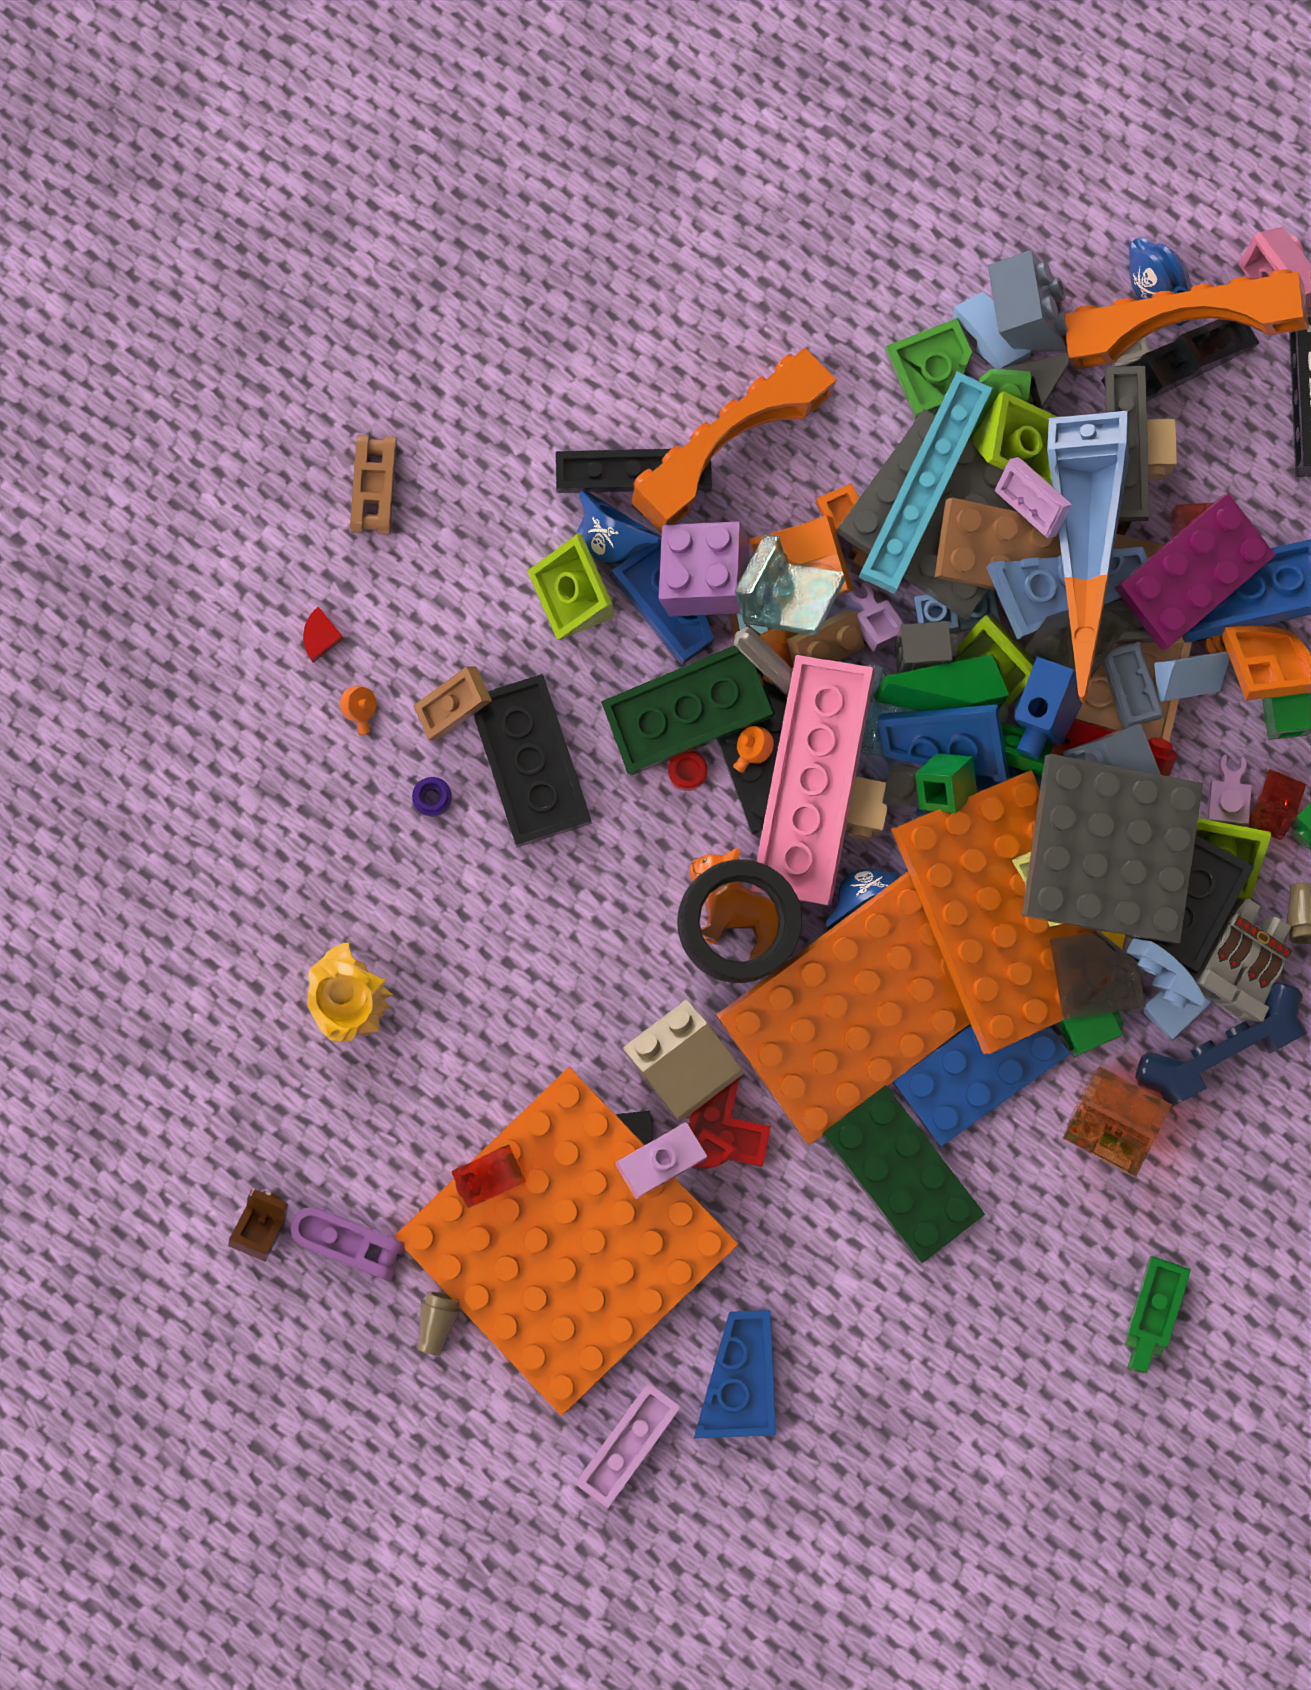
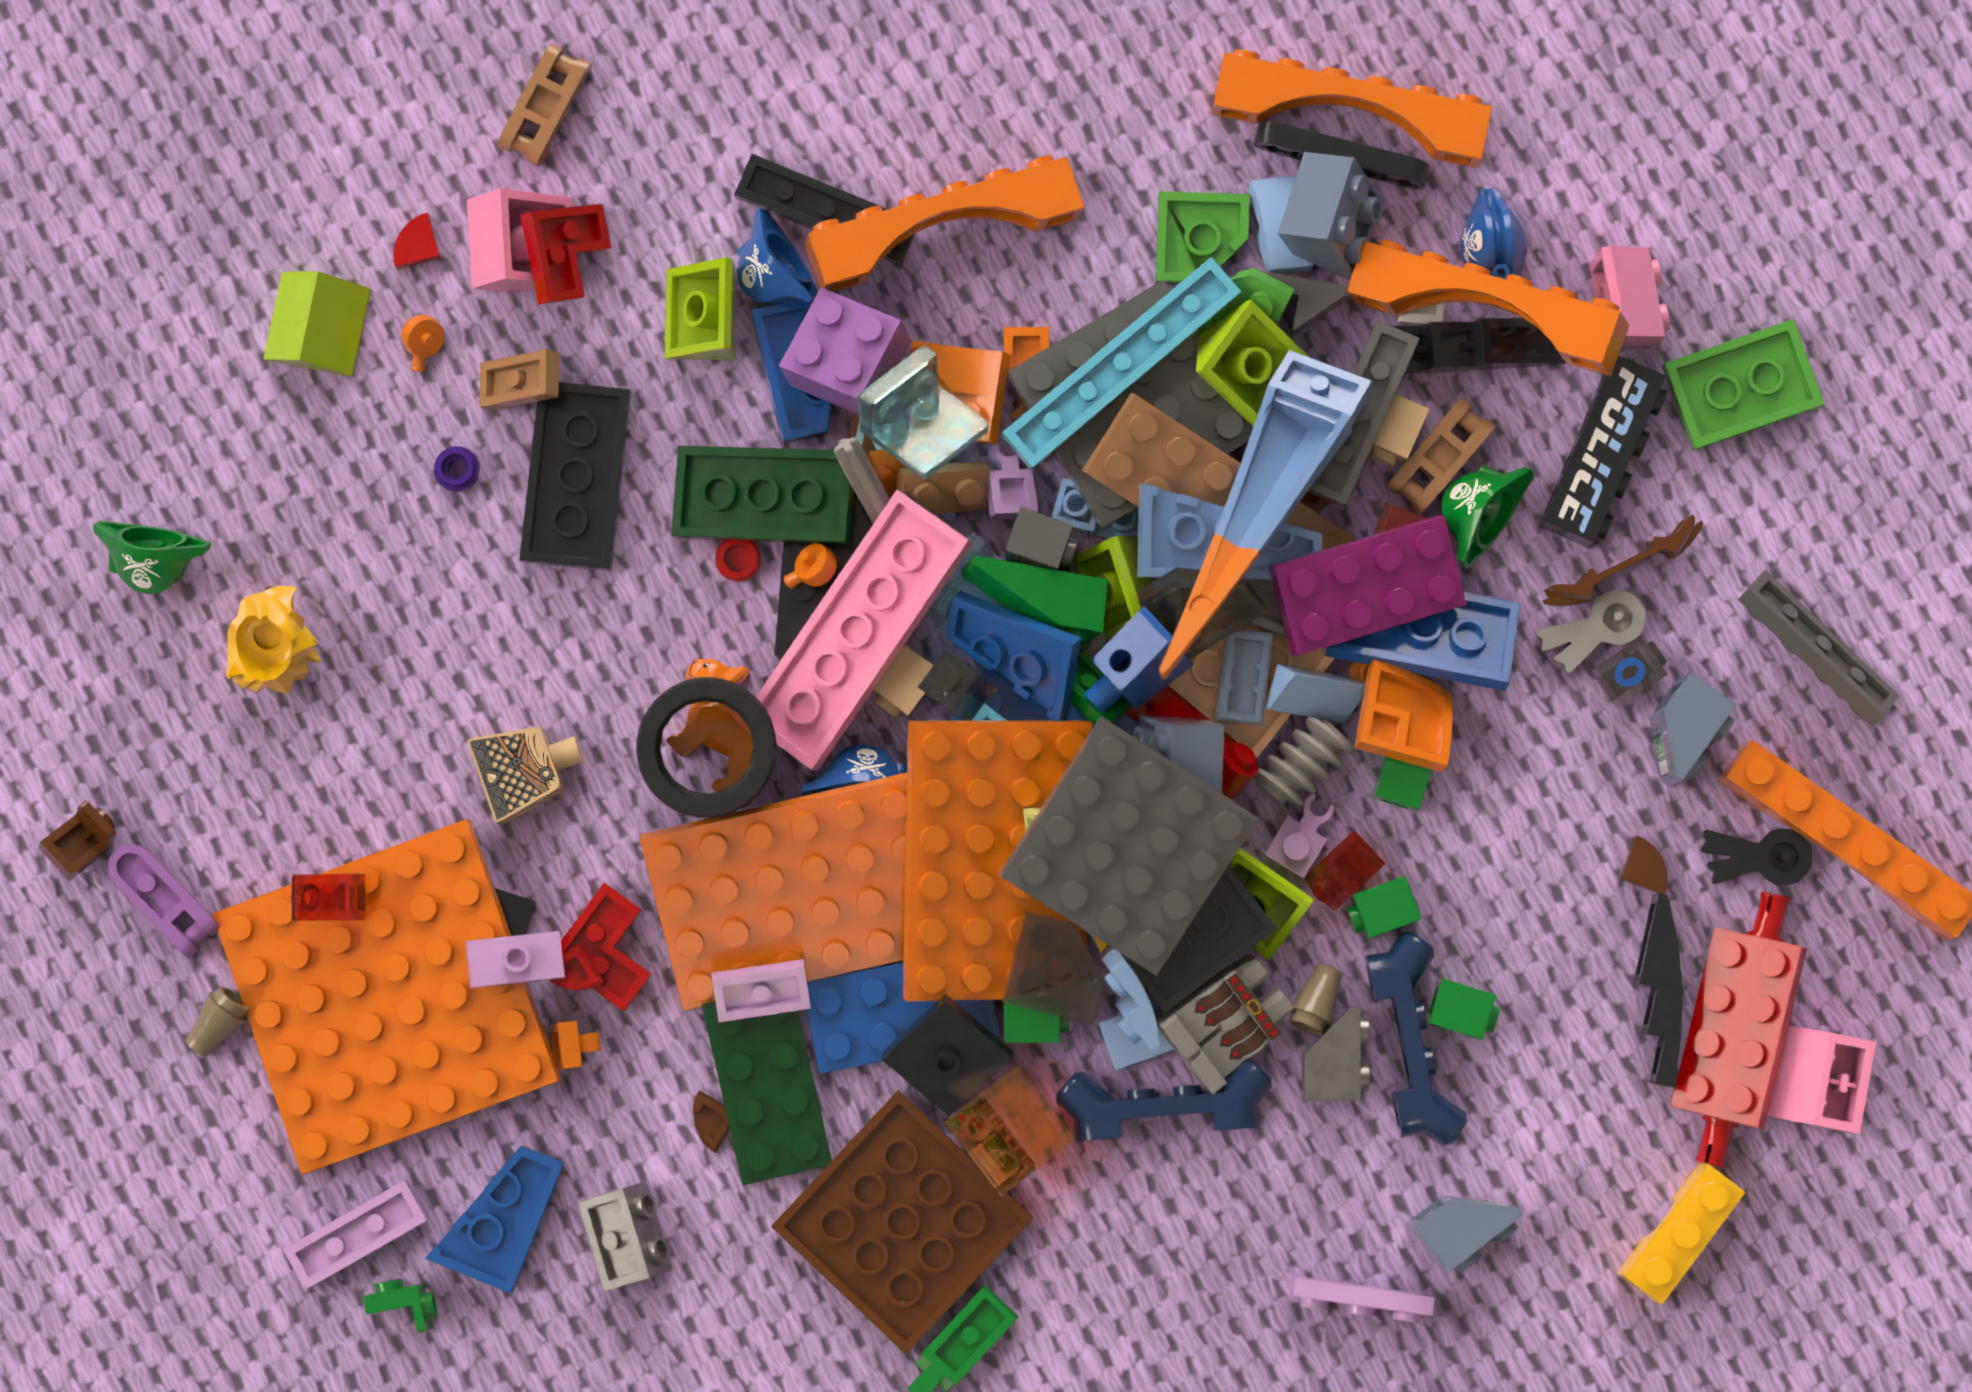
camera: 30 degrees right, 5 degrees up
(216, 972) = (148, 556): none -> green hat
(267, 730) = (317, 322): none -> lime slope
(403, 596) = (498, 240): none -> bright pink slope
(433, 583) = (552, 245): none -> red plate
(592, 1009) = (521, 769): none -> torso
(680, 1481) = (393, 1295): none -> green bracket
(683, 1060) = (587, 865): dark tan slope -> none
(732, 1212) = (568, 1045): none -> orange tile
(846, 1347) = (625, 1236): none -> flat silver bracket
(867, 1098) = (761, 990): none -> lavender plate
(870, 1224) = (710, 1121): none -> reddish brown tile
(946, 782) = (990, 696): green brick -> none
(974, 264) = (1374, 162): none -> black beam
(1033, 497) = (1224, 431): lavender plate -> none
(1038, 1084) = (947, 1055): none -> black plate
(1062, 1236) = (901, 1222): none -> reddish brown plate
(1078, 205) = (1442, 125): none -> orange arch
(1197, 454) = (1441, 456): none -> medium nougat plate
(1203, 733) = (1302, 762): none -> light grey piece
(1249, 477) = (1481, 507): none -> green hat

